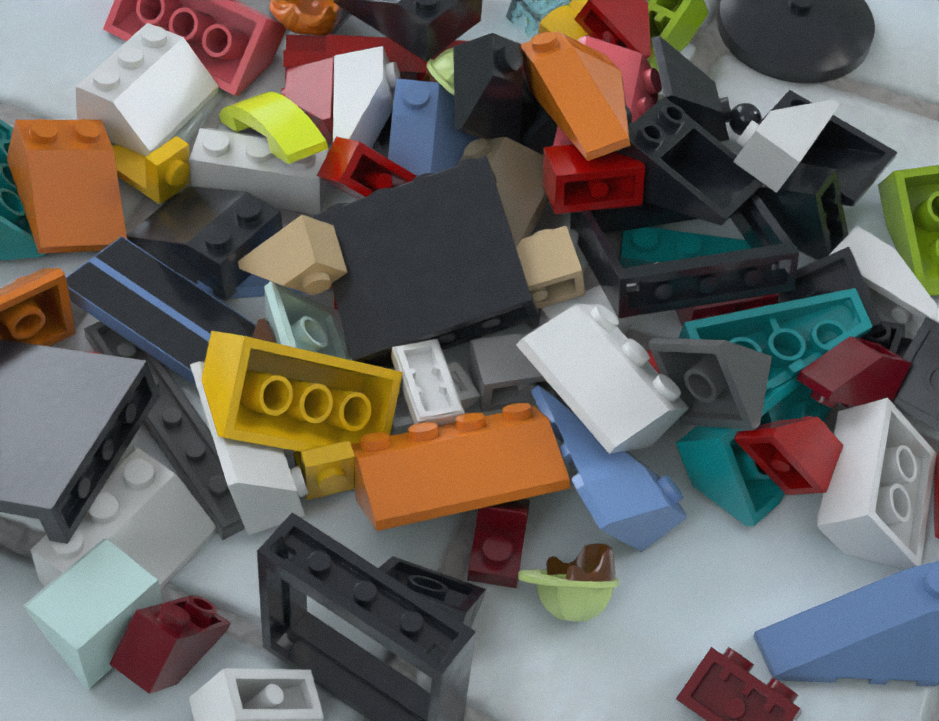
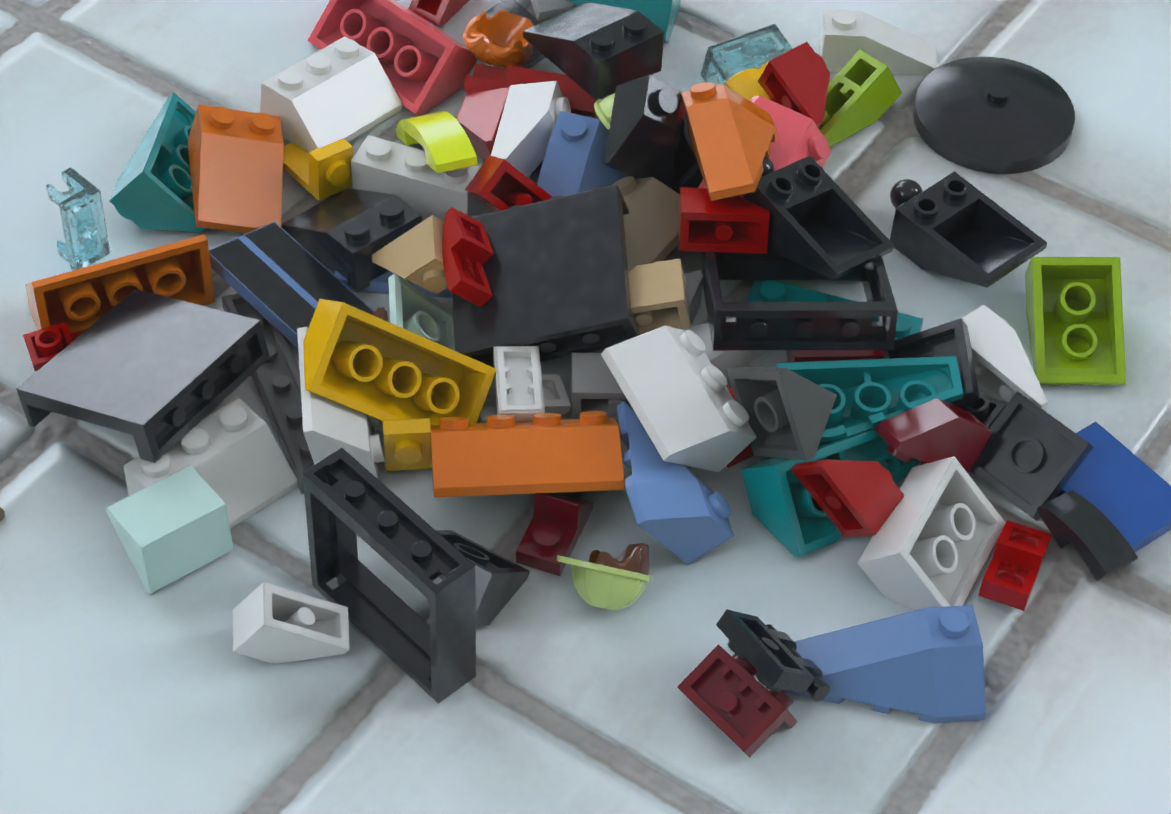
camera: 15 degrees right, 5 degrees down
(168, 641) = (227, 563): dark red slope -> none
(341, 248) = (464, 252): none -> red slope
(692, 90) = (853, 163): black slope -> none
(764, 645) = (772, 655): none -> black plate
(782, 140) = (921, 211): white slope -> none
(809, 209) = (931, 276): black slope -> none

